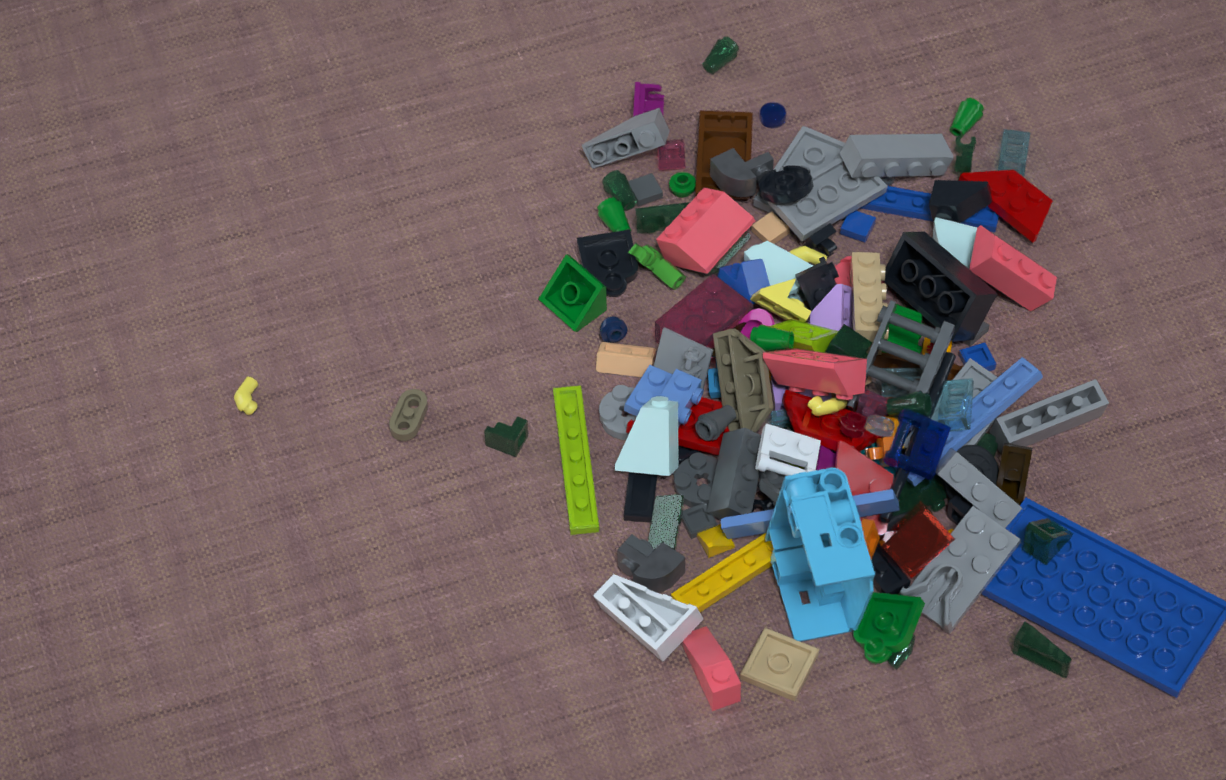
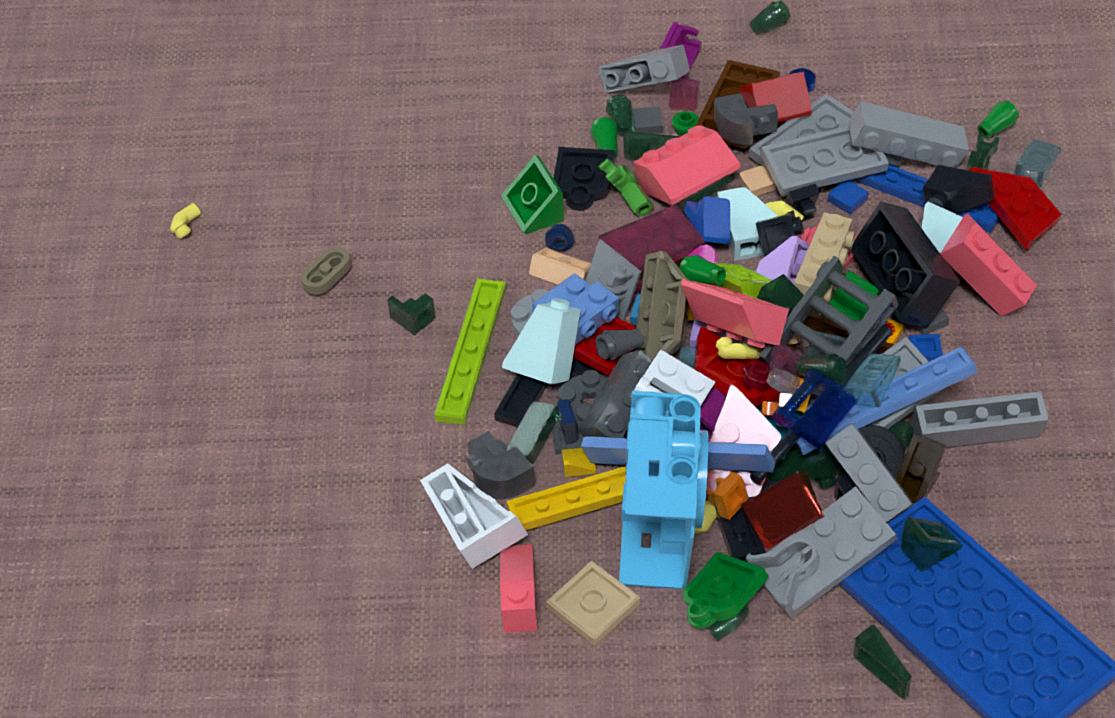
camera: 20 degrees right, 5 degrees down
(696, 507) = (567, 421): none -> dark blue tile
(763, 135) = (786, 92): none -> slope
(776, 300) = (727, 240): light yellow slope -> none
(786, 185) = (782, 139): black tile -> none

